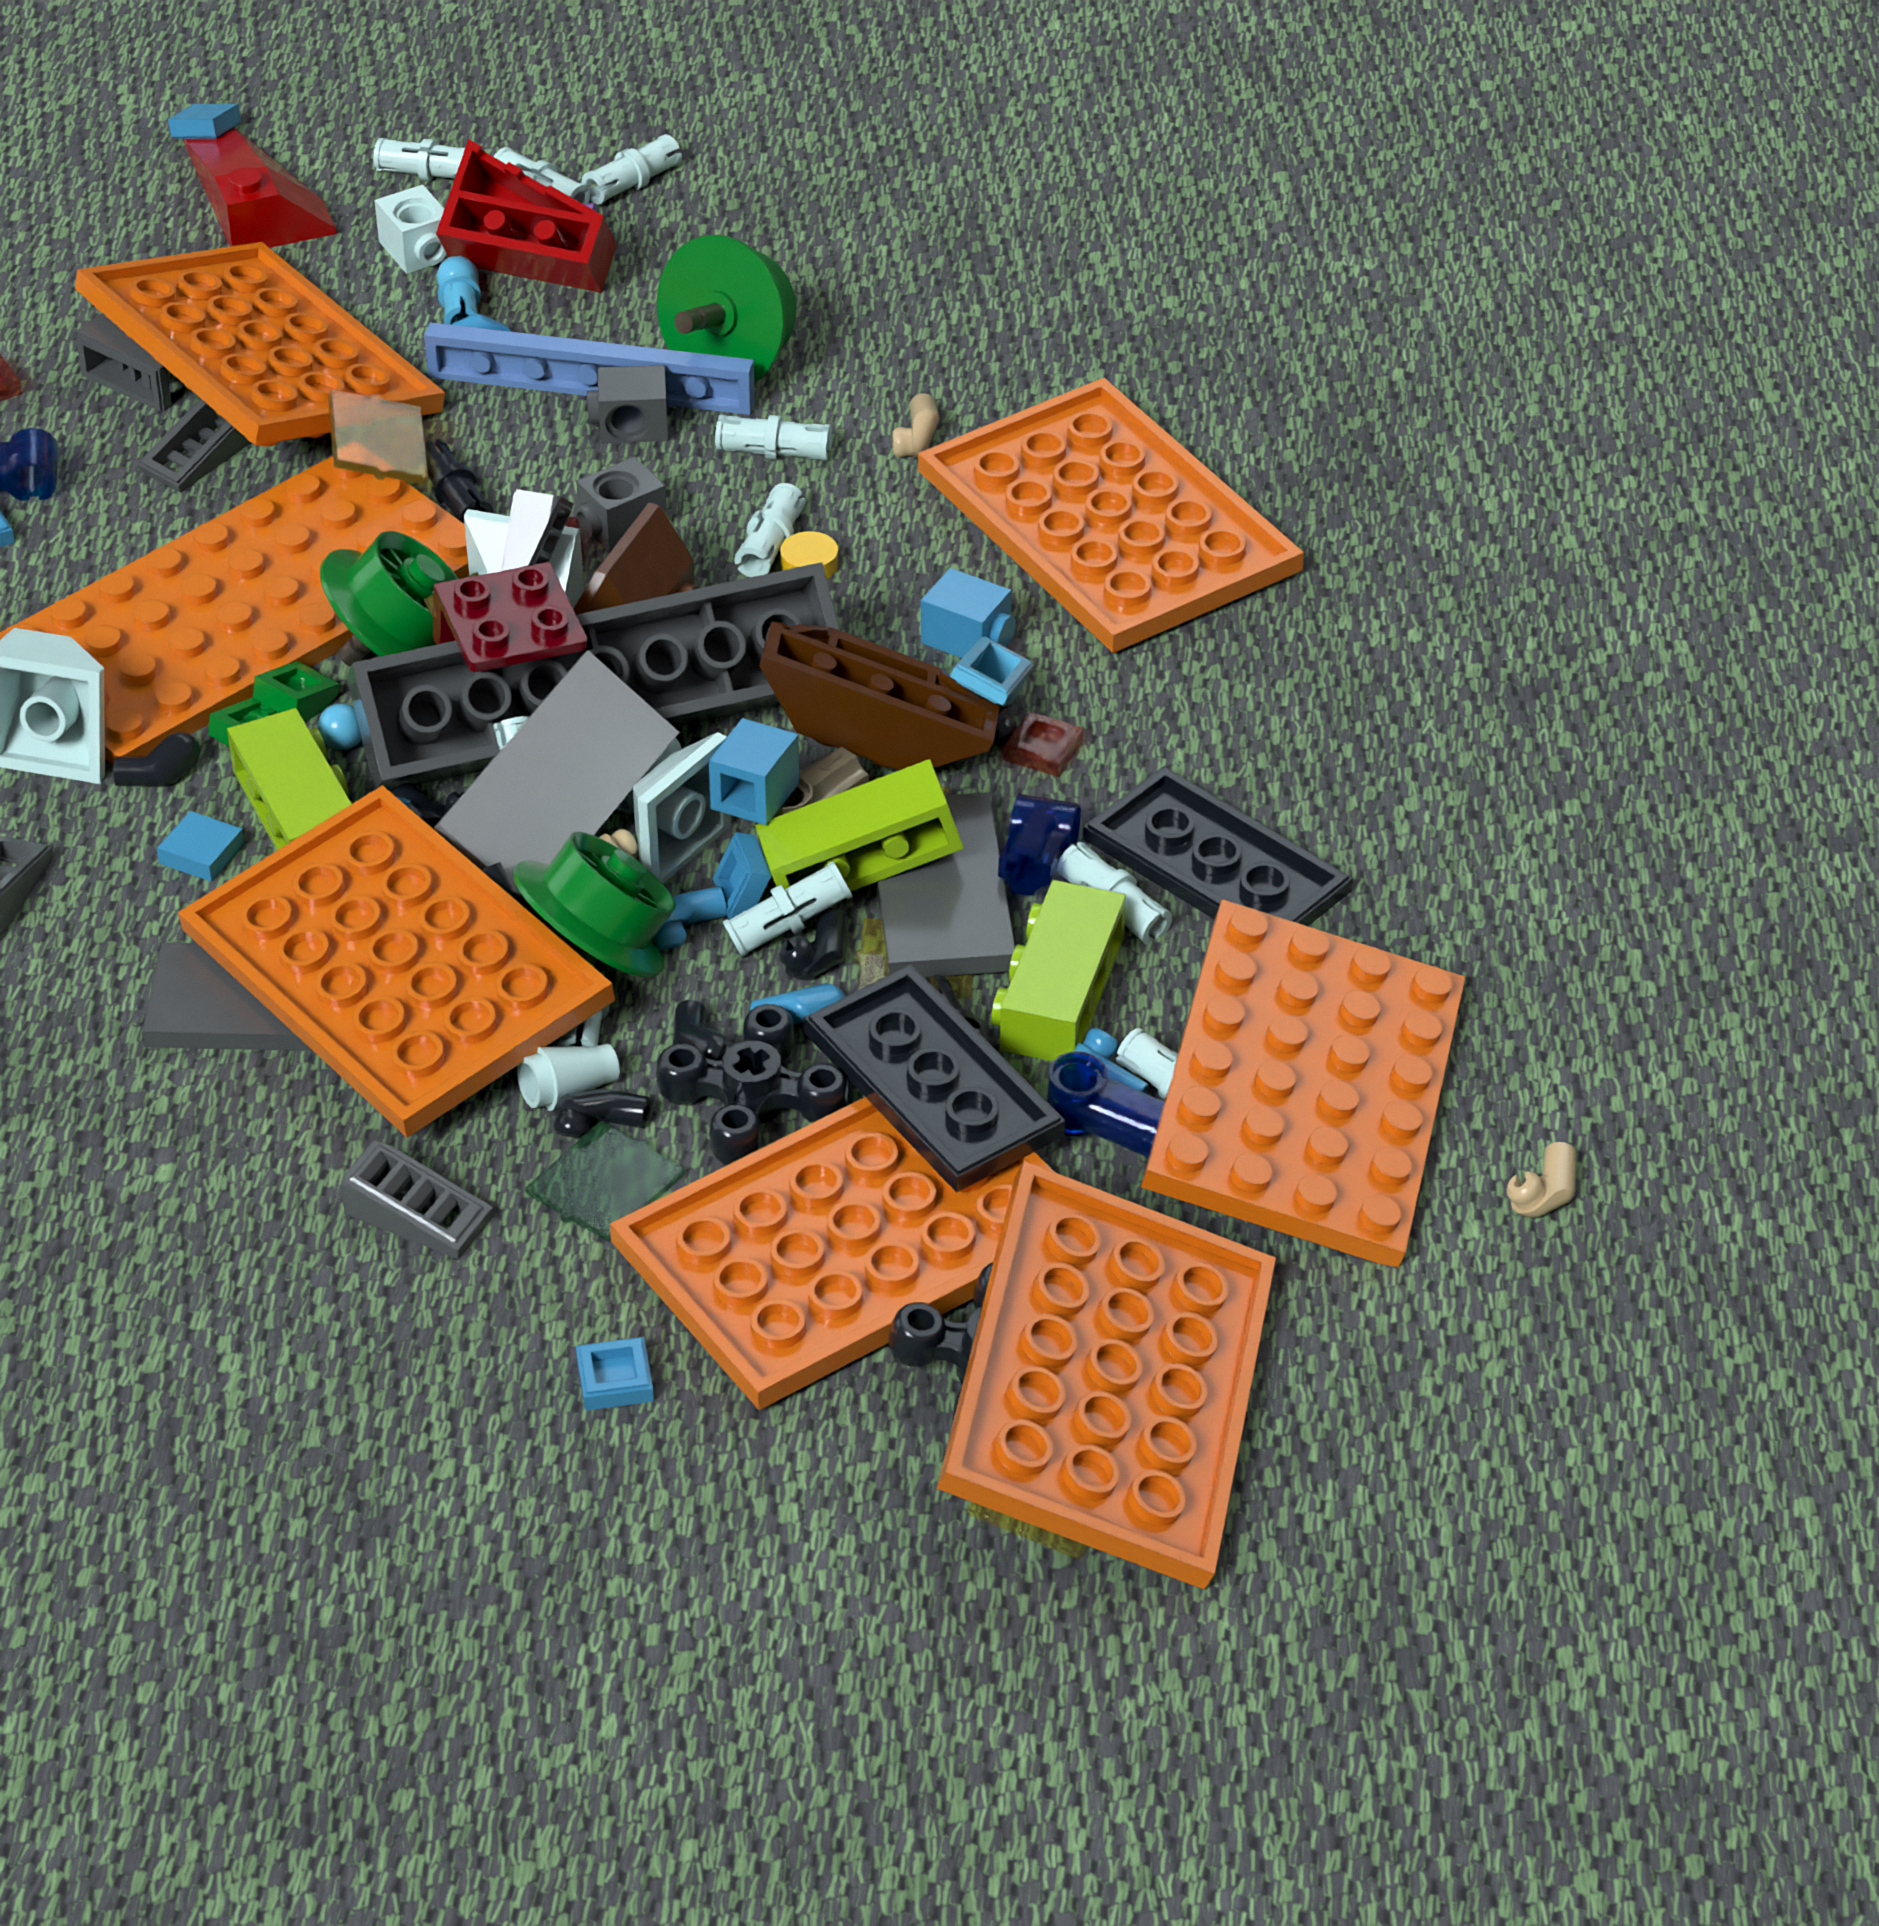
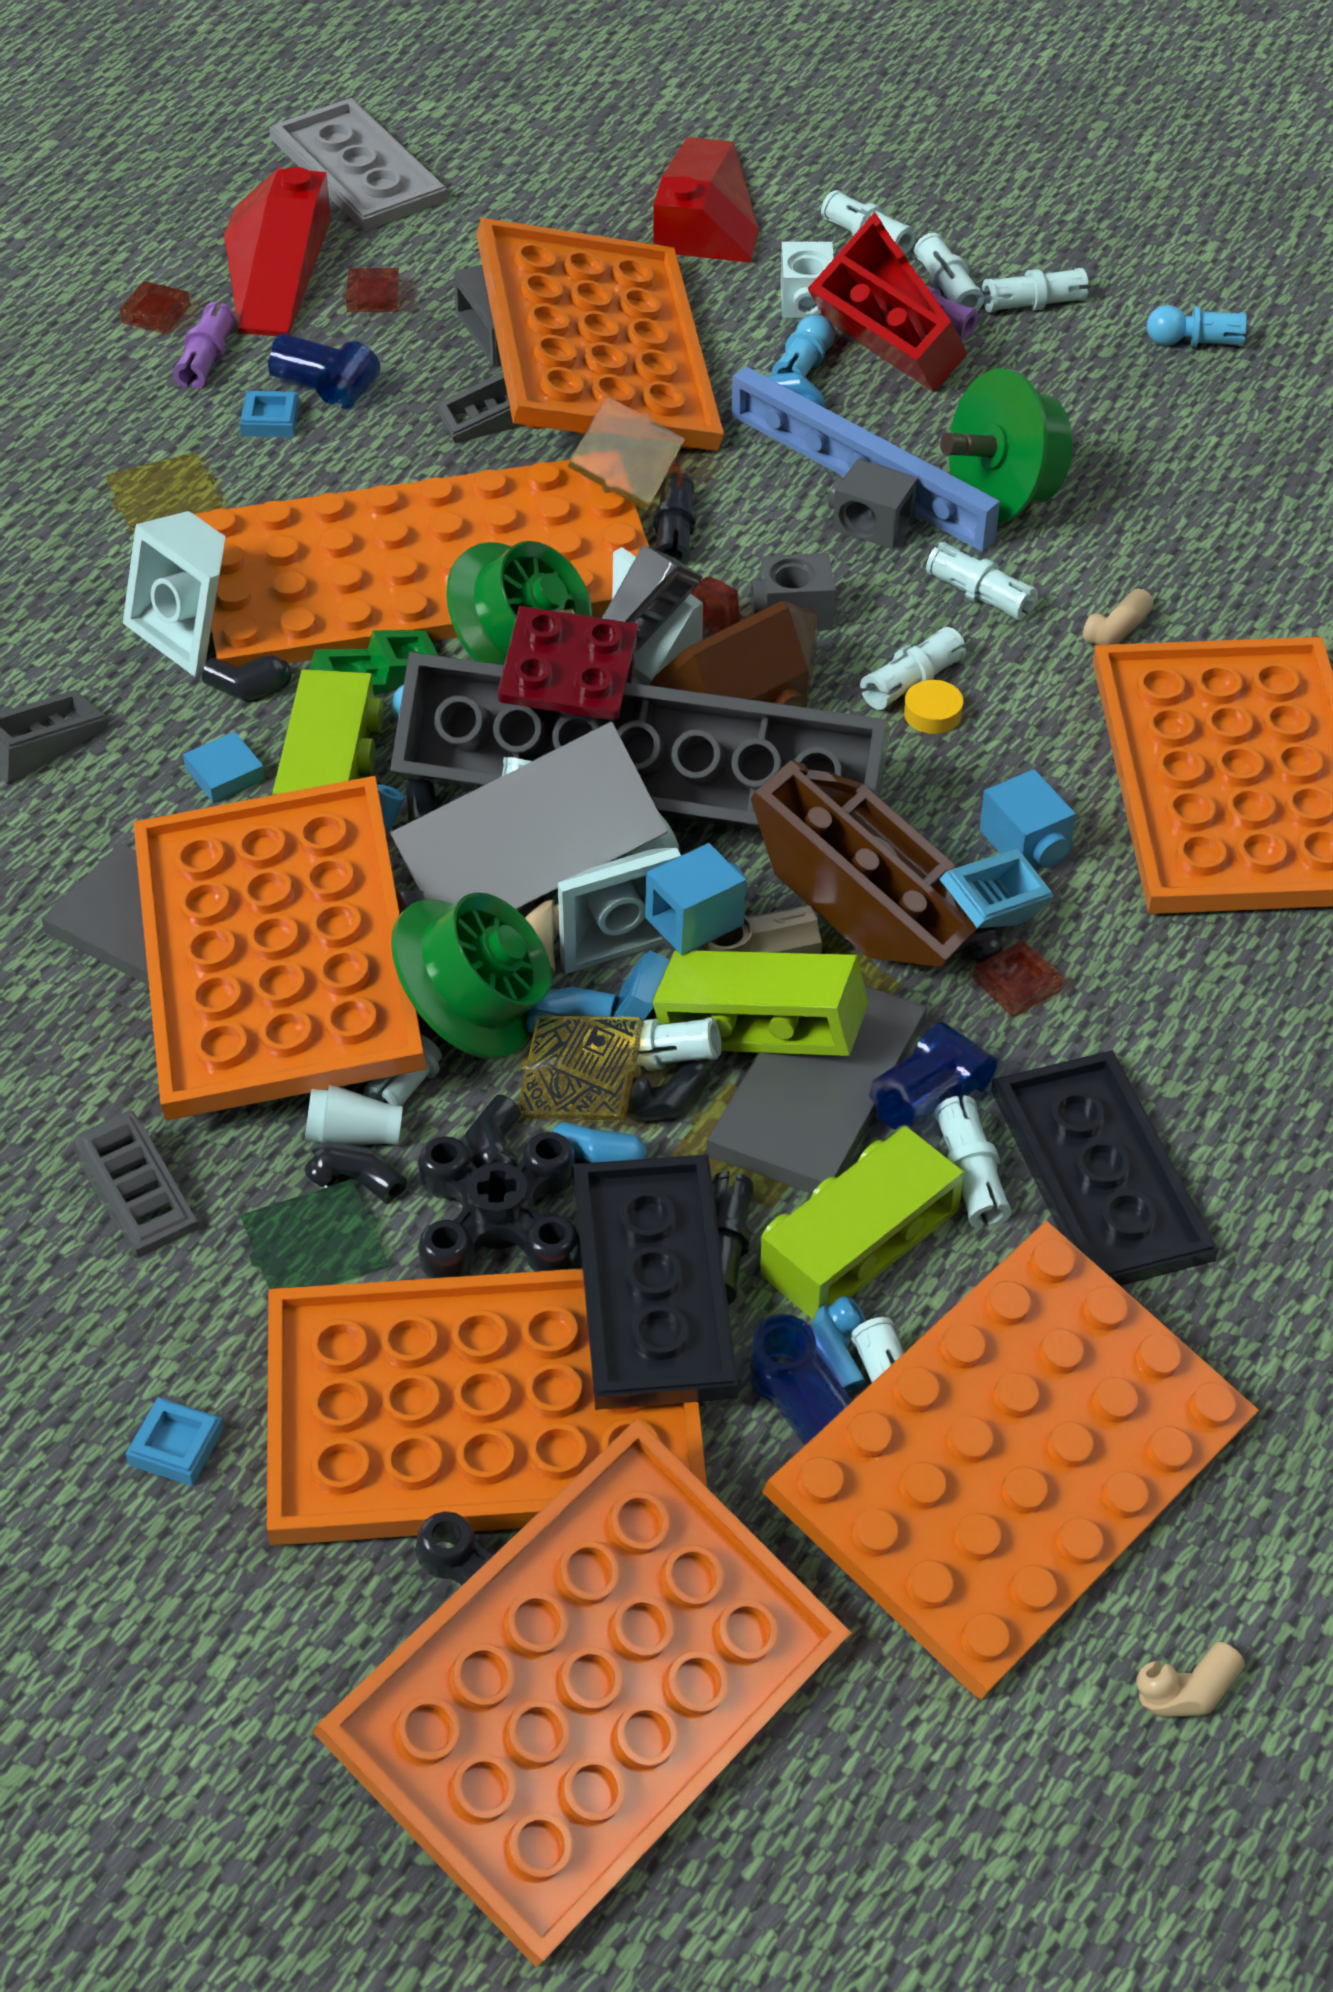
camera: 30 degrees right, 5 degrees up
(204, 121) = (710, 129): dark azure tile -> none
(739, 951) = (580, 1068): none -> clear yellow piece
(778, 160) = (1169, 325): none -> medium azure pin

